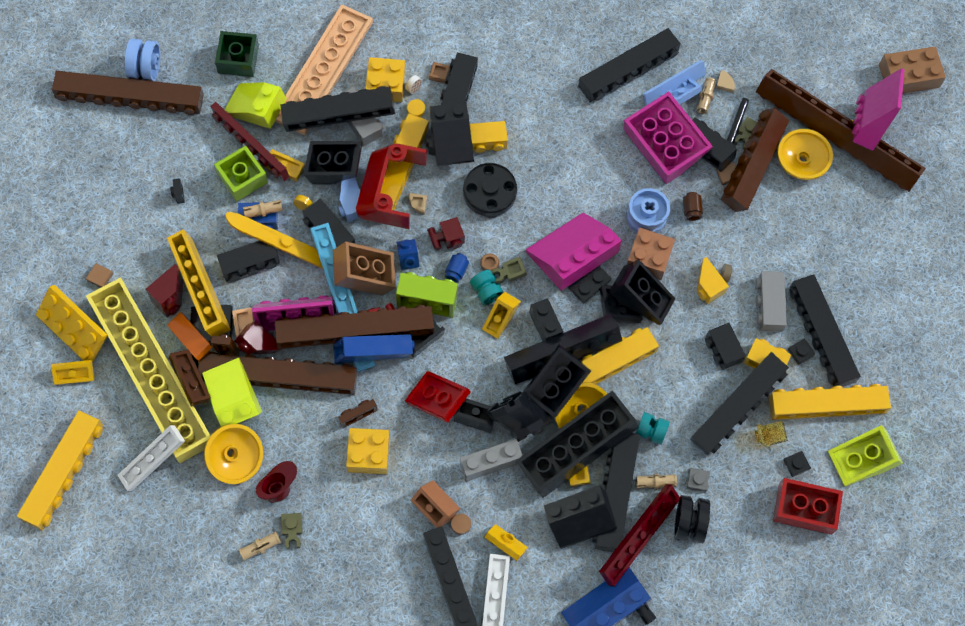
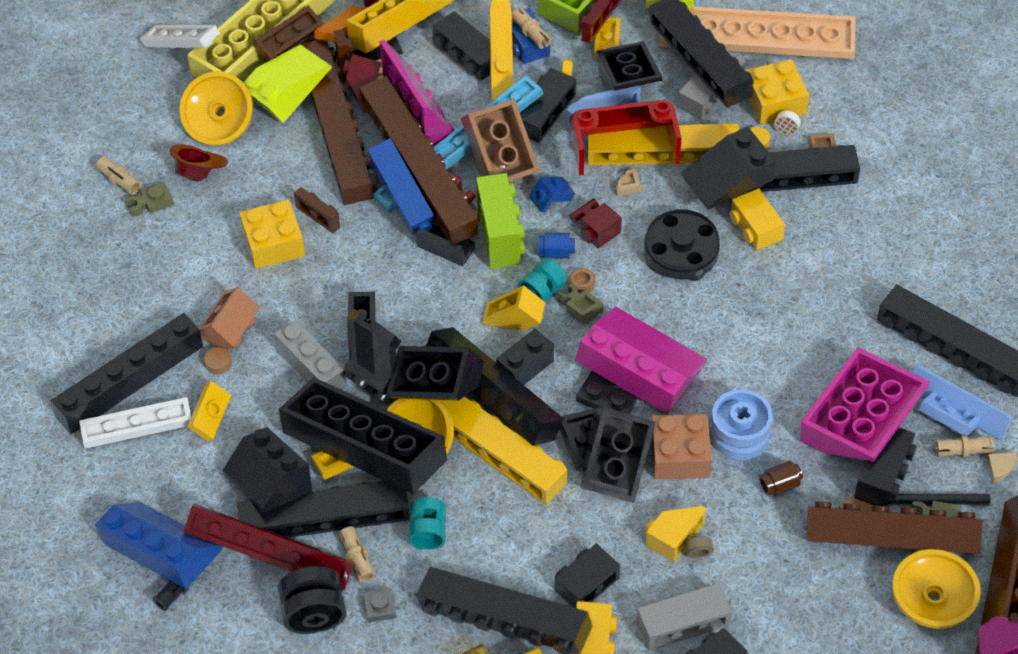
camera: 75 degrees right, 15 degrees down
(437, 396) = (368, 274): red tile -> none

